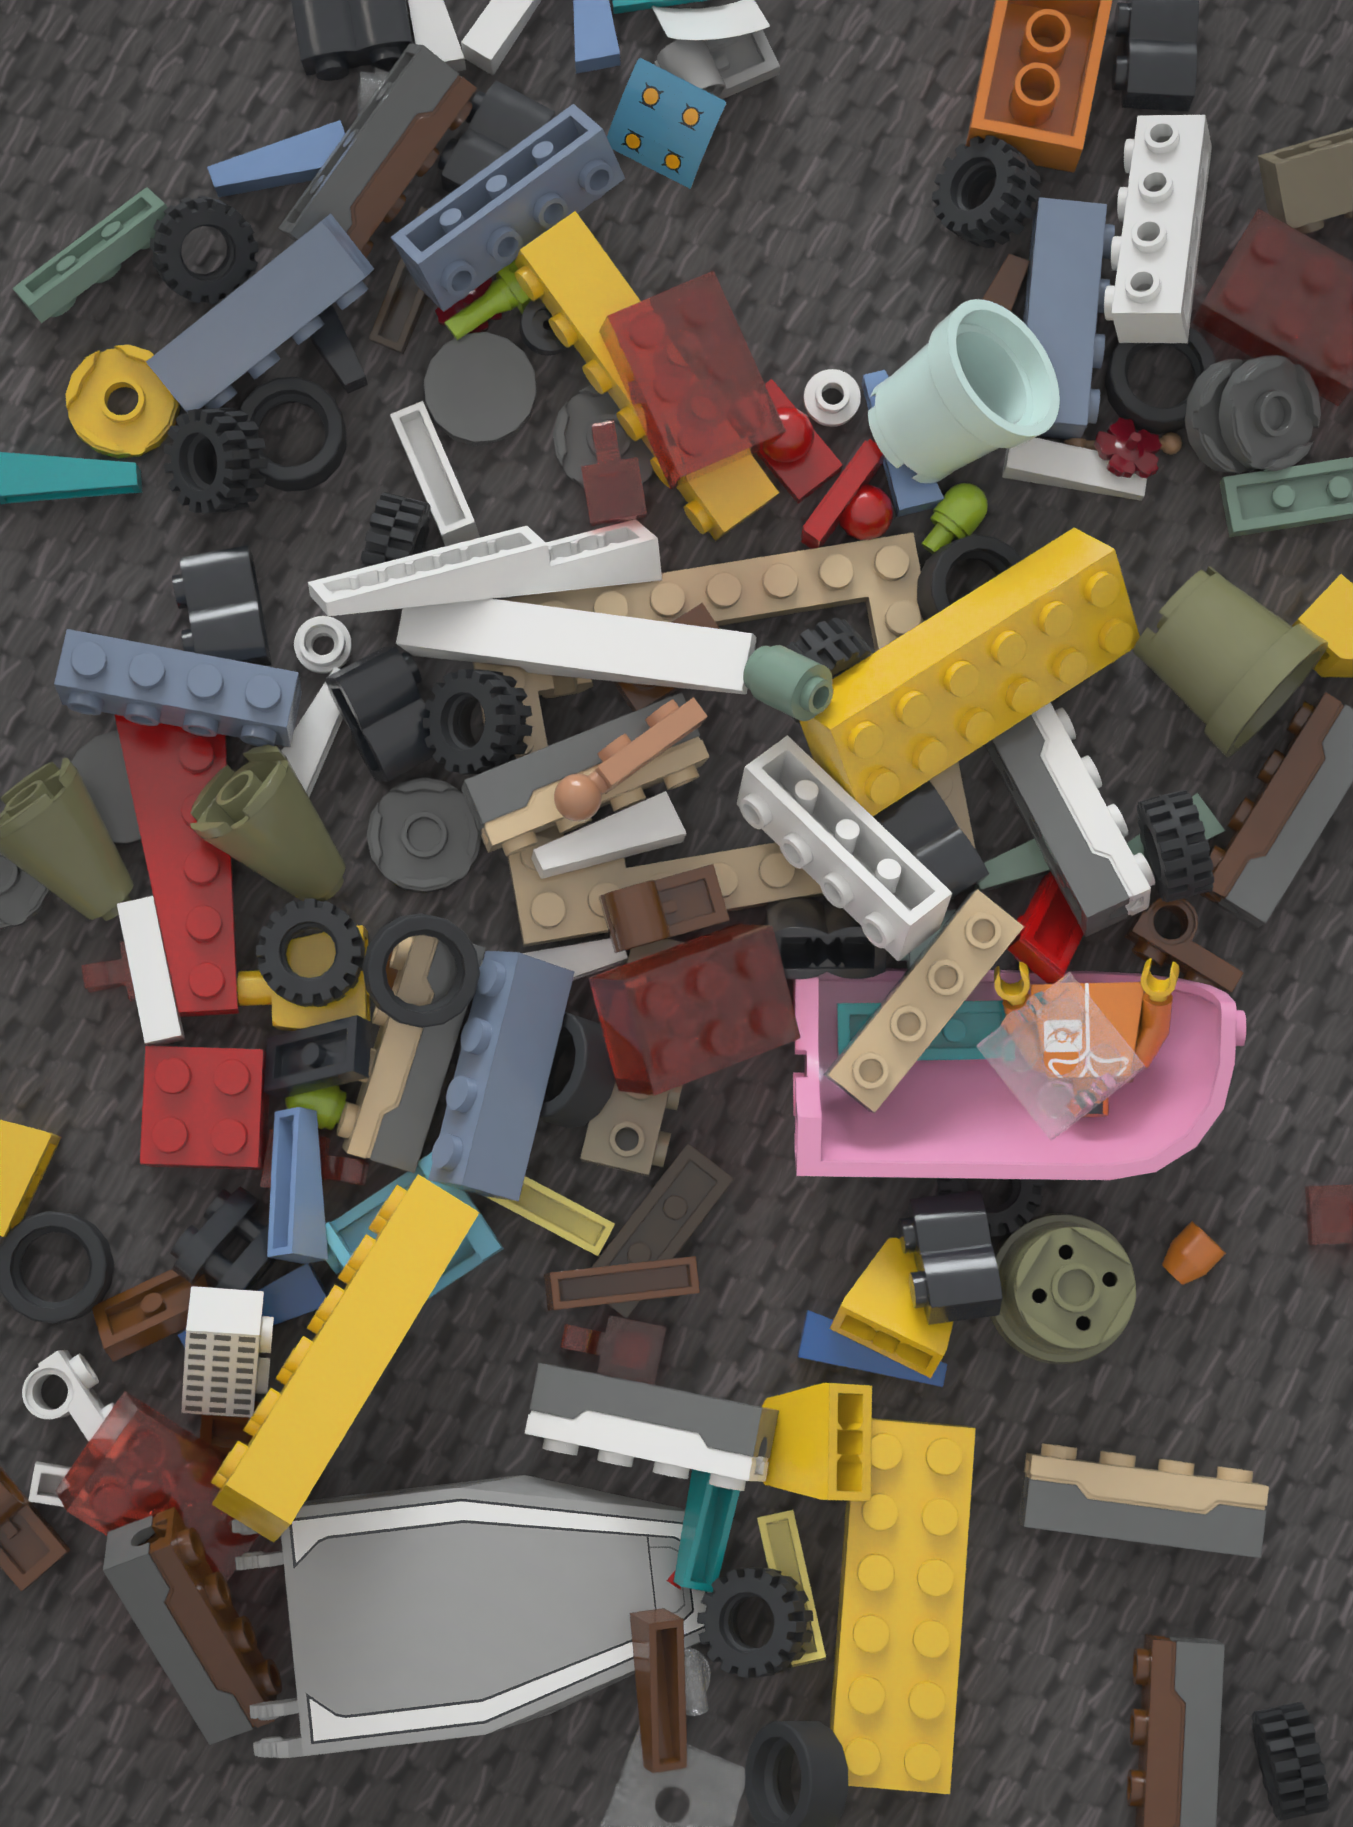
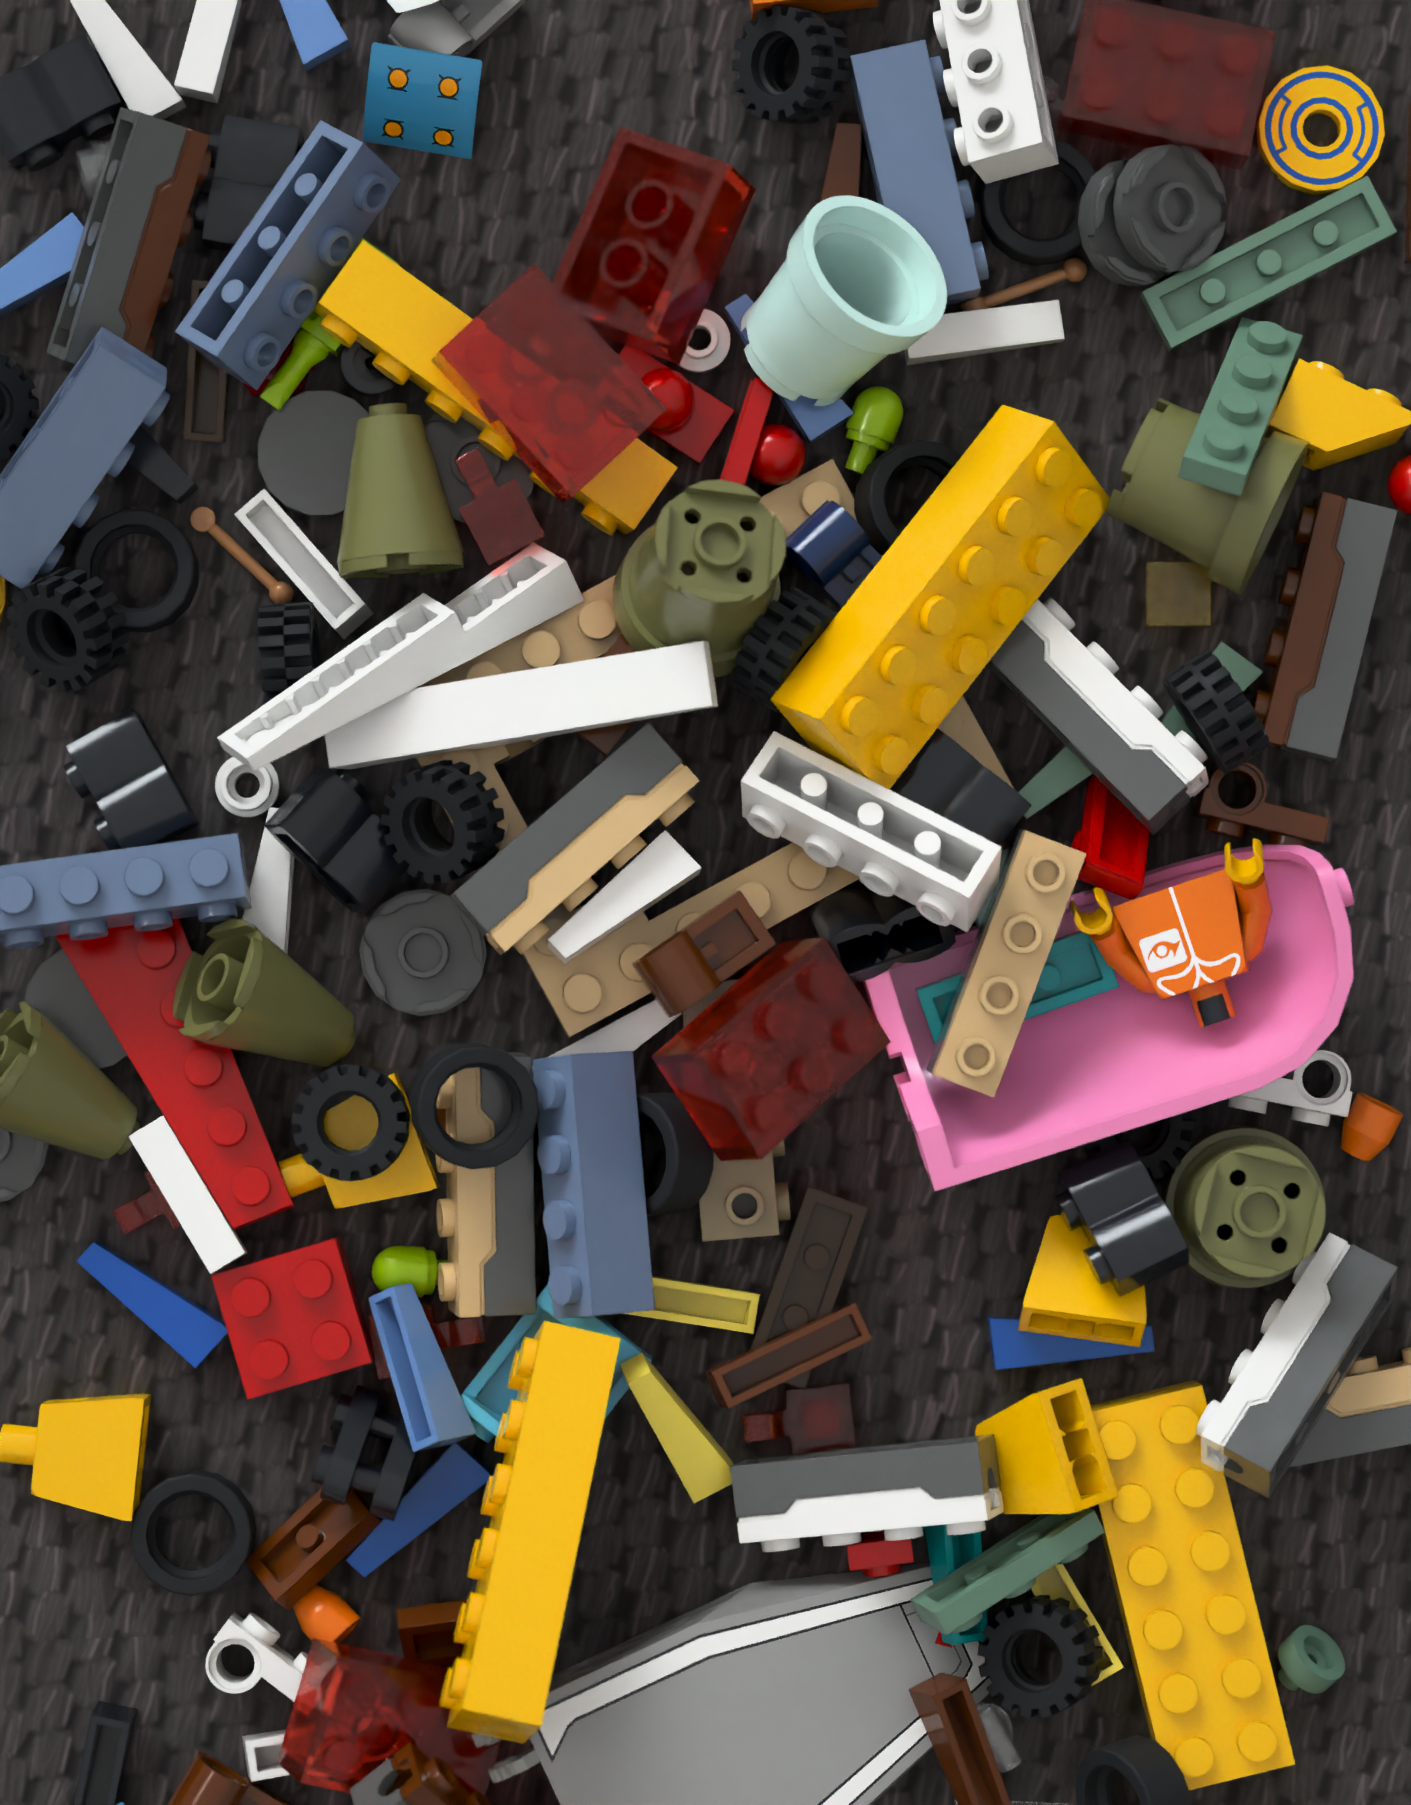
camera: 20 degrees left, 5 degrees up
(101, 1073) = (168, 1313): none -> blue piece
(144, 1377) = (325, 1615): none -> orange hose
(223, 1352) = (403, 1564): white brick -> none
(318, 1057) = (395, 1228): black plate -> none
(363, 414) = (205, 520): none -> medium nougat hinge
(508, 1331) = (688, 1444): none -> light yellow piece
(529, 445) = (395, 502): none -> olive cone
(580, 796) = (580, 871): nougat plate -> none
(643, 1485) = (877, 1555): none -> red plate
(751, 1533) = (1005, 1569): none -> sand green plate
(788, 681) = (759, 681): sand green brick -> none
(796, 544) = (718, 533): none -> olive piece
(821, 298) = (652, 243): none -> clear red brick
(886, 602) = (832, 552): none -> dark blue plate
(991, 1707) = (1309, 1660): none -> sand green tile
(1050, 1016) = (1122, 984): clear piece -> none
(1064, 1437) = (1297, 1364): none -> dark grey piece
(1128, 450) = (1032, 296): dark red plant -> none
(1133, 1201) = (1291, 1092): none -> white plate
(1171, 742) = (1176, 595): none -> clear yellow plate
(1278, 592) = (1240, 406): none -> sand green plate

